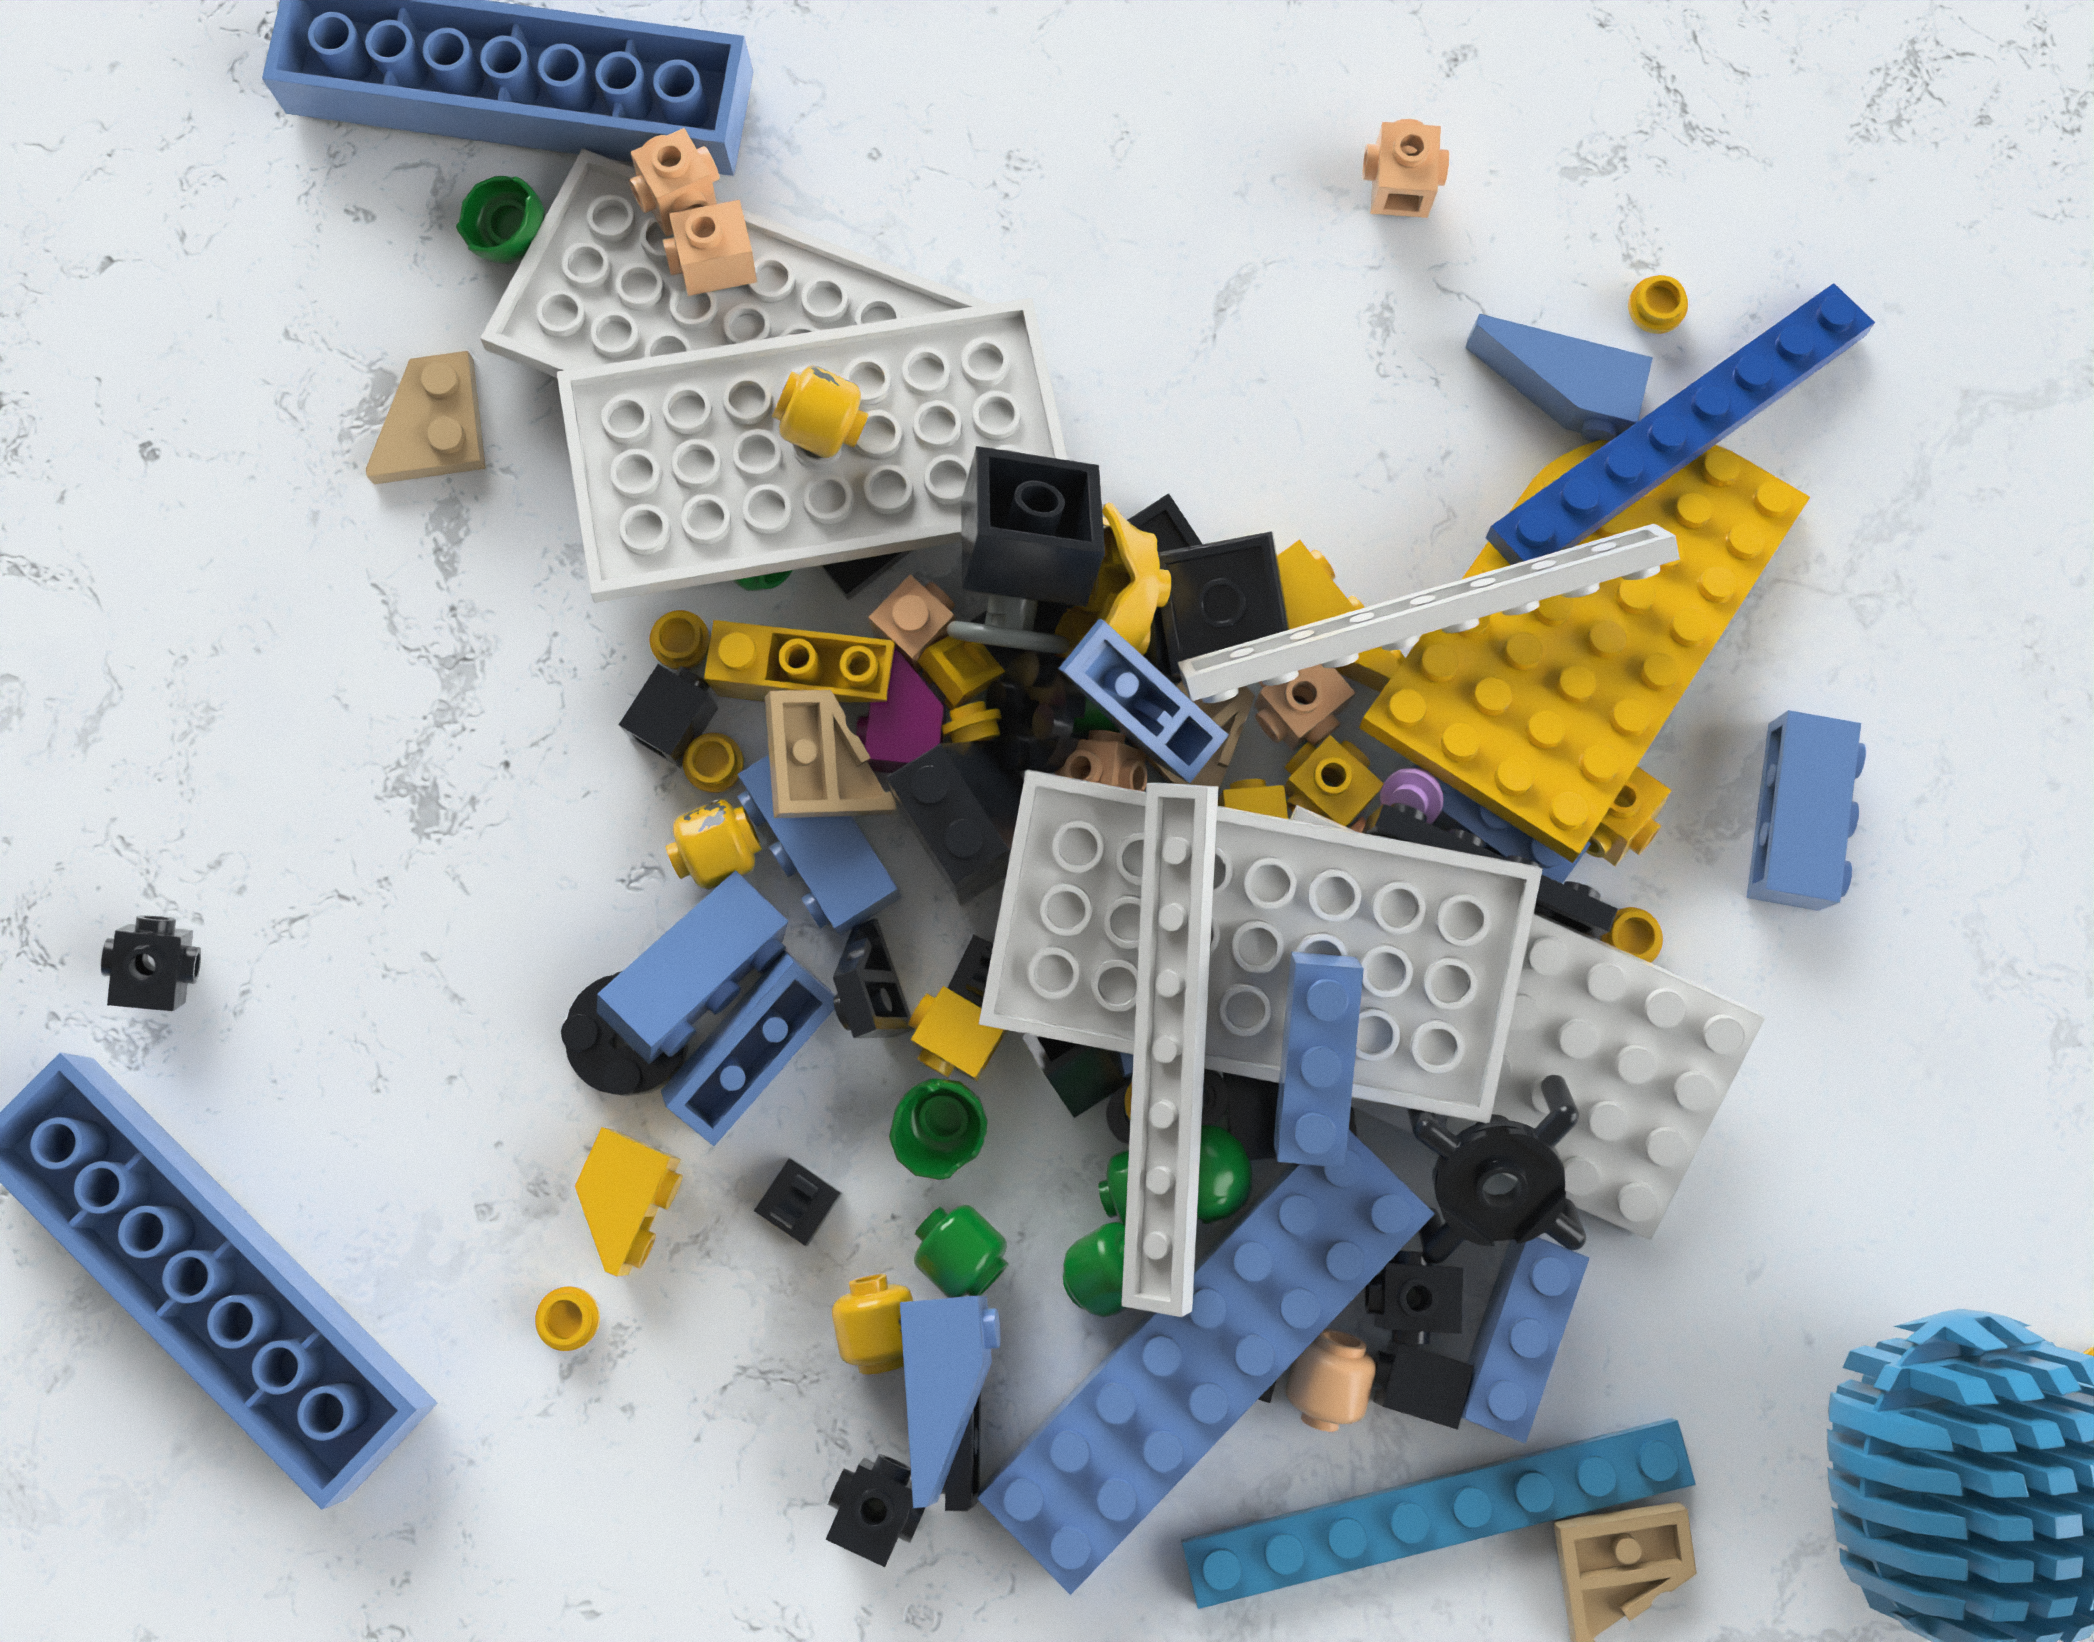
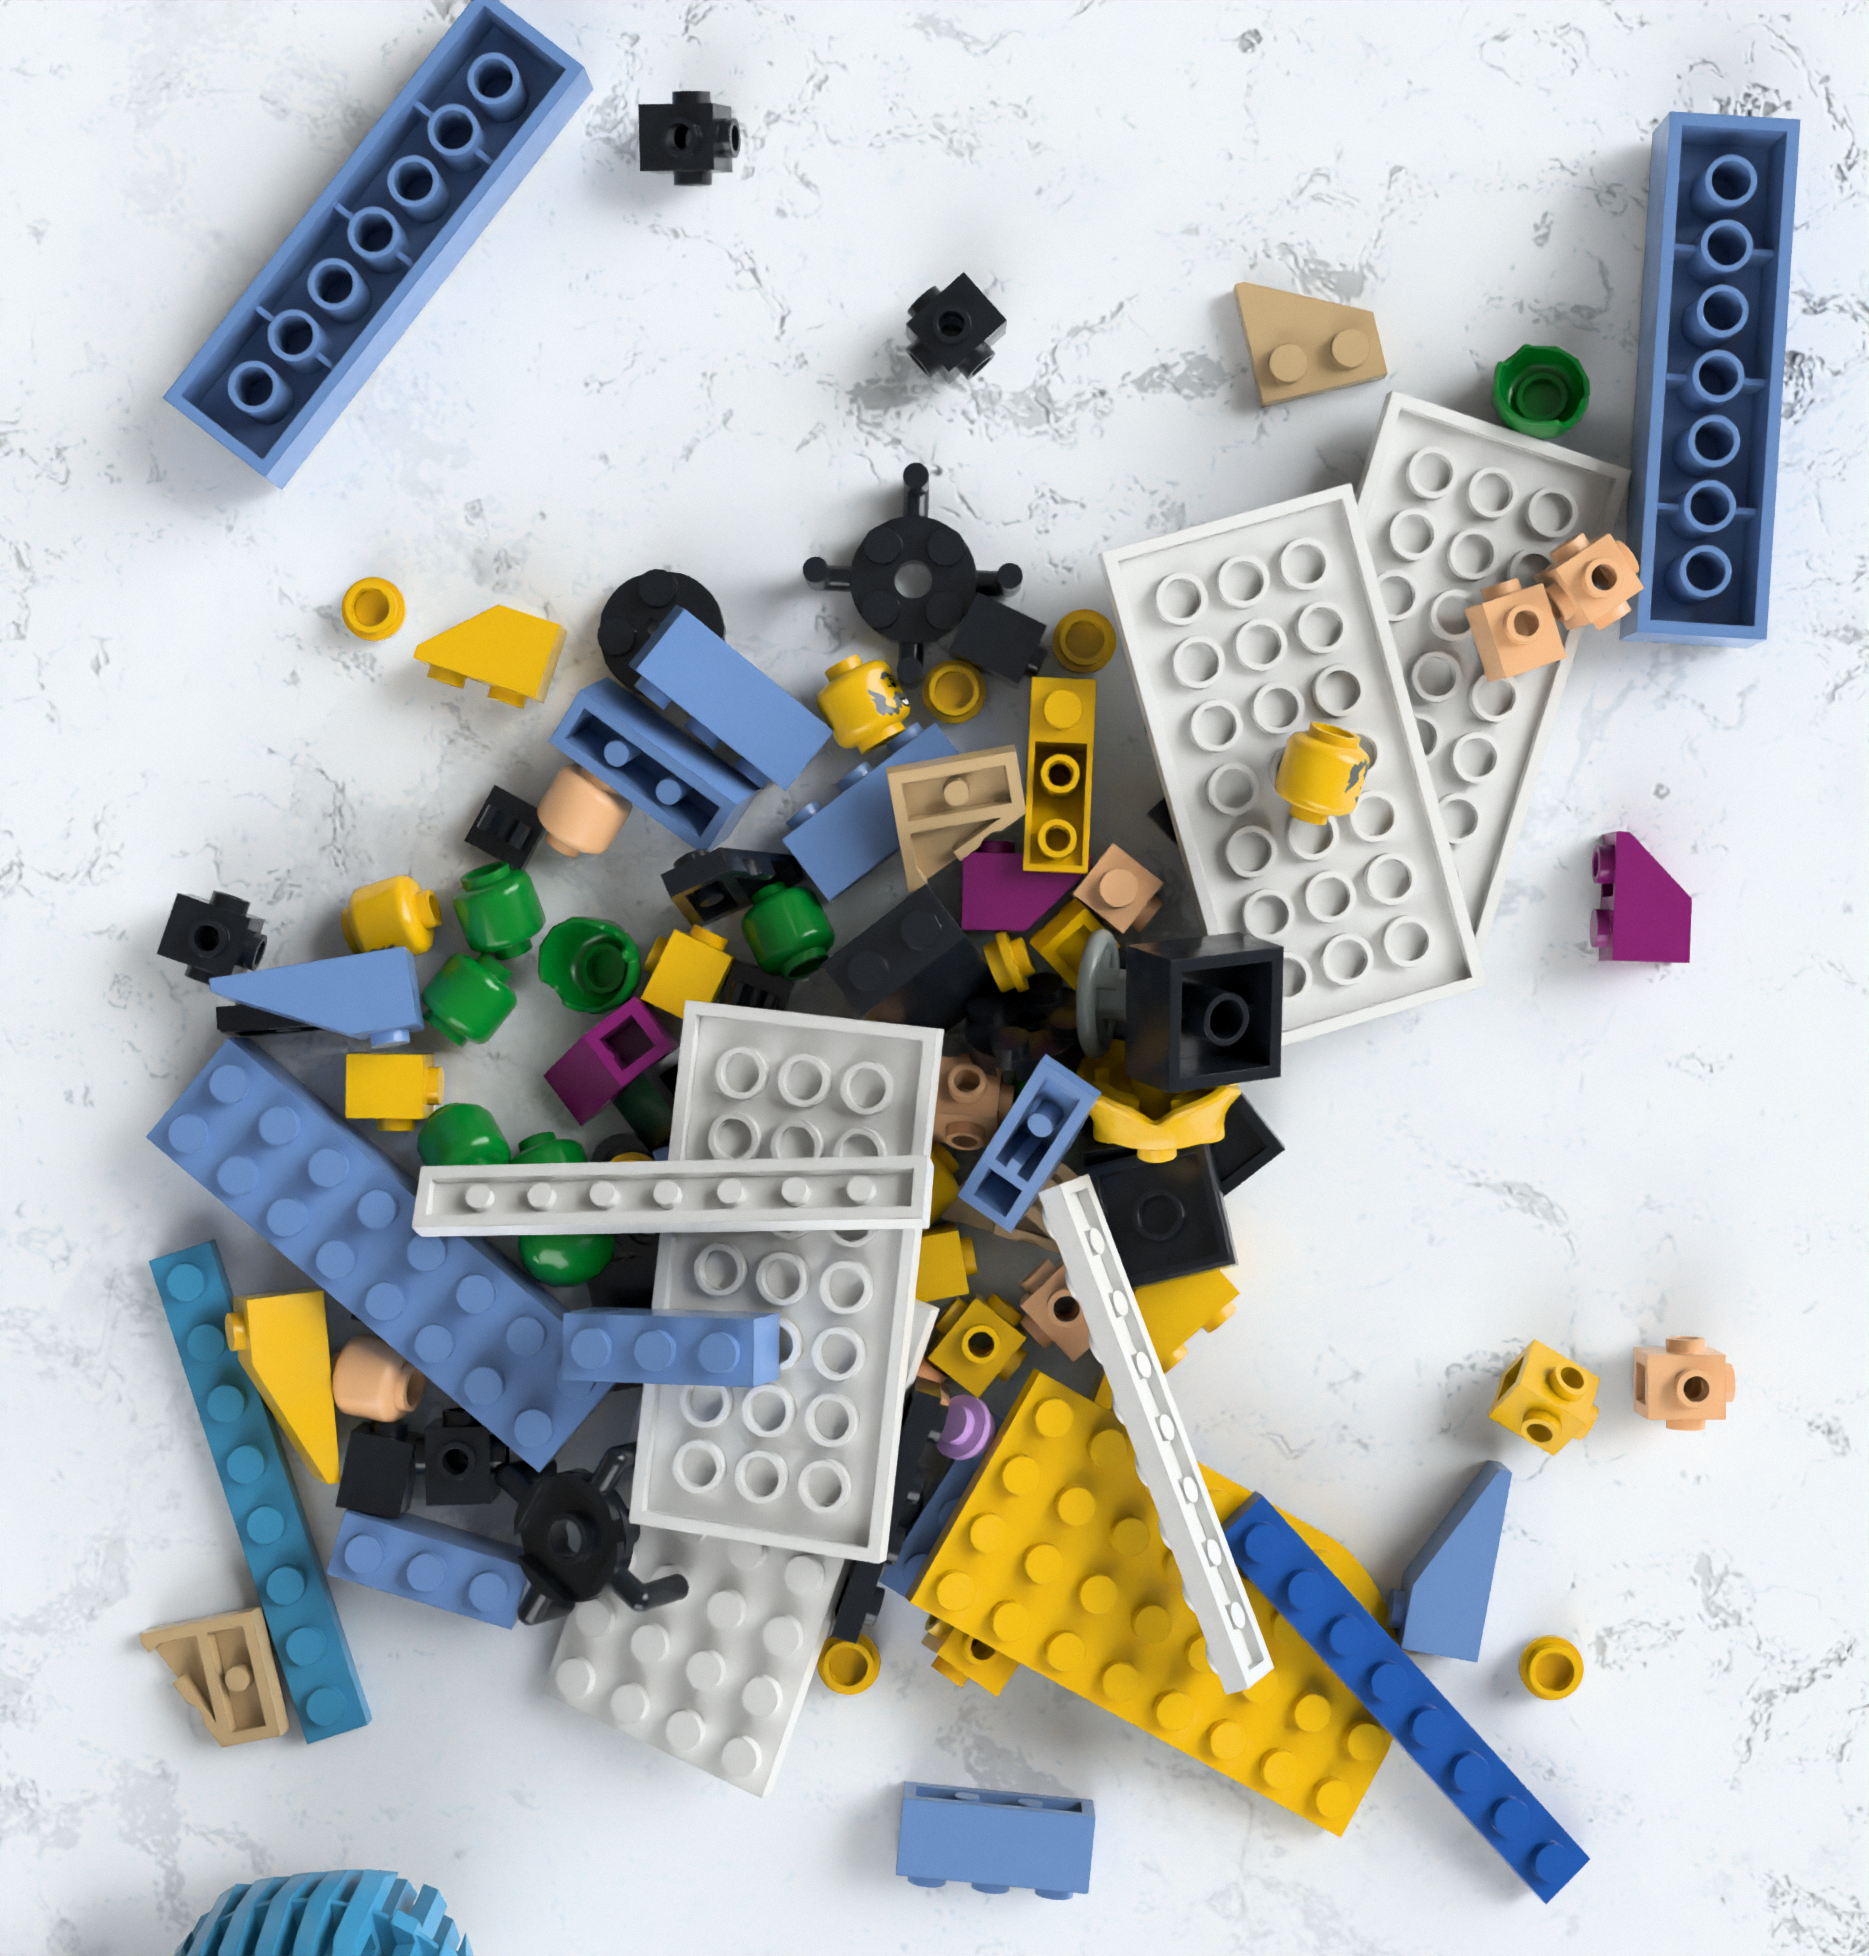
camera: 85 degrees right, 10 degrees up
(370, 729) = (956, 308): none -> black brick
(574, 771) = (905, 542): none -> black plate
(787, 1123) = (581, 812): none -> light nougat head
(876, 1216) = (498, 910): none -> green head
(924, 934) = (787, 931): none -> green head
(971, 172) = (1641, 906): none -> magenta slope
(1033, 1116) = (610, 1059): none -> magenta slope
(1043, 1337) = (392, 1088): none -> yellow brick
(1309, 1467) = (287, 1358): none -> yellow slope
(1412, 284) = (1546, 1398): none -> yellow brick

